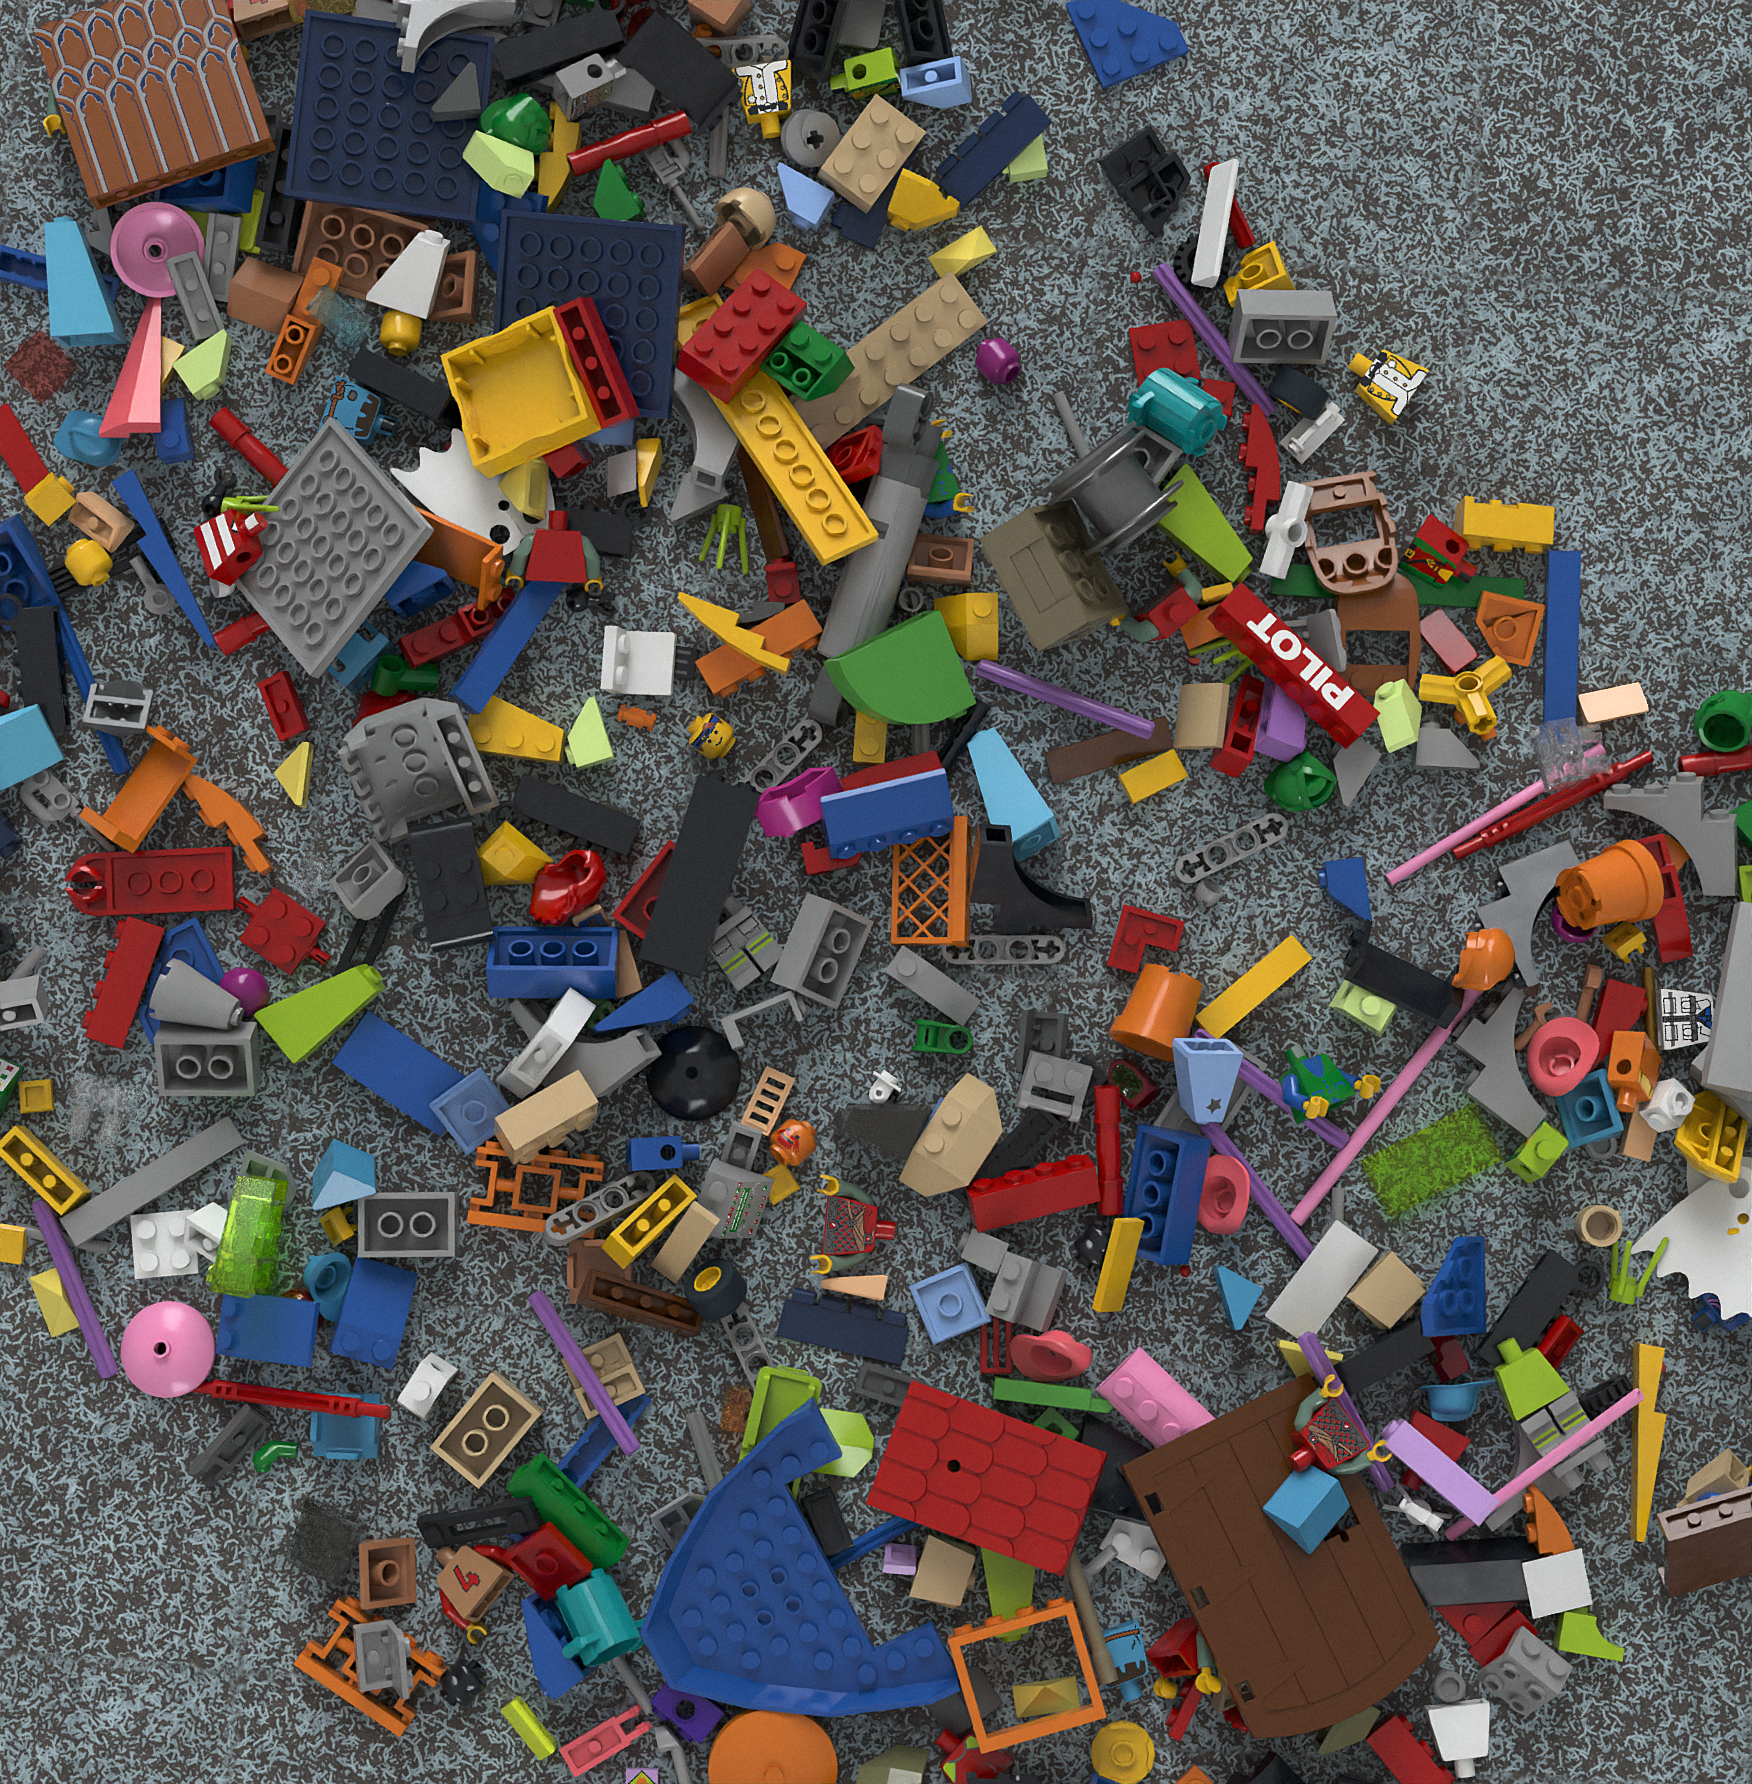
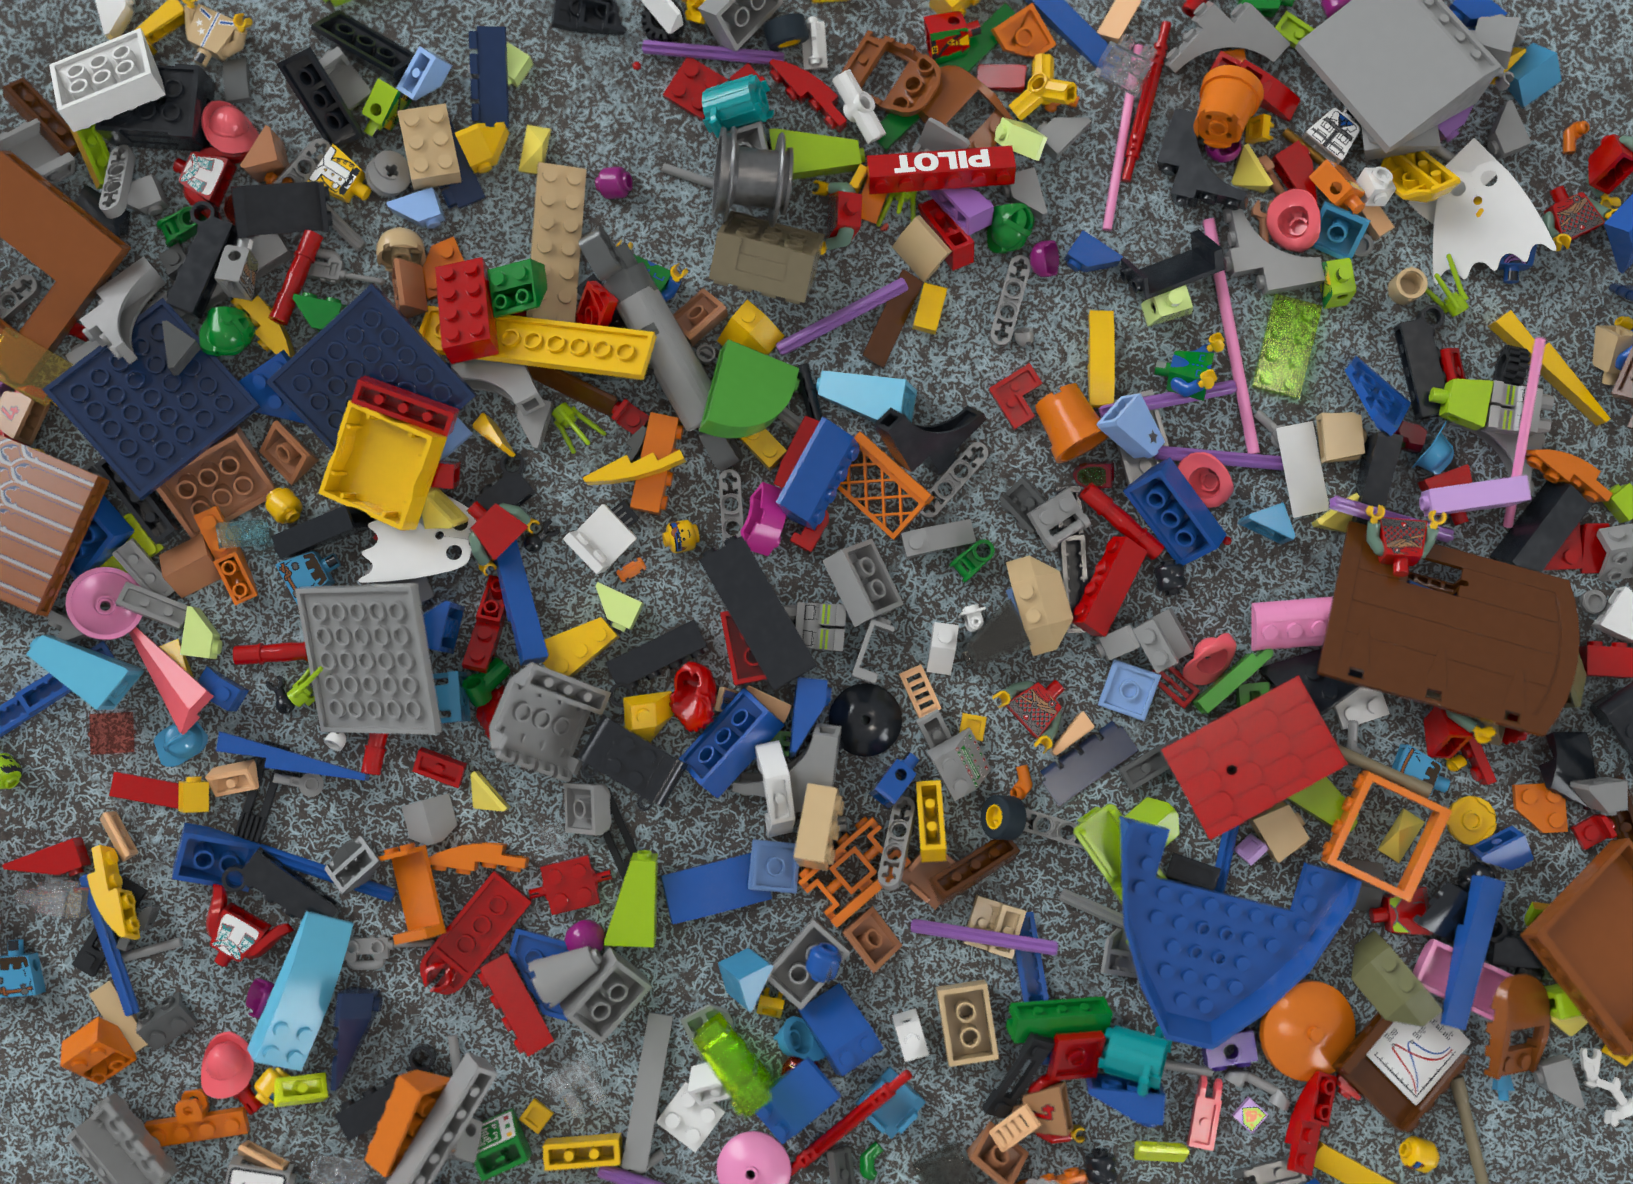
camera: 50 degrees left, 0 degrees up
(88, 562) = (251, 806): yellow head -> none
(226, 742) = (430, 819): none -> light grey slope
(230, 544) = (316, 714): red torso -> none
(414, 276) = (258, 468): white slope -> none
(421, 1237) = (823, 962): none -> blue head
(424, 1563) = (1014, 1129): none -> light nougat slope
(464, 557) = (450, 583): orange panel -> none
(487, 1267) = (872, 938): none -> nougat slope
(500, 163) = (238, 358): yellowish green slope -> none
(621, 473) = (482, 452): white sticker -> none
(685, 1242) = (961, 810): tan tile -> none
(735, 1403) = (1079, 865): clear orange leg -> none
(766, 1282) = (1024, 783): none -> orange arm
(793, 1142) = (957, 697): orange head -> none
(828, 1085) = (942, 648): none -> white slope
(1118, 1264) = (1192, 574): yellow tile -> none
(1307, 1506) = (1430, 588): dark azure slope -> none
(1311, 842) = (1045, 258): none -> magenta hair
(1419, 1512) = (1480, 530): white piece -> none
(1486, 959) = (1206, 210): orange helmet -> none
(1557, 1583) = (1593, 487): white sticker -> none
(1572, 970) = (1250, 172): none -> light yellow slope

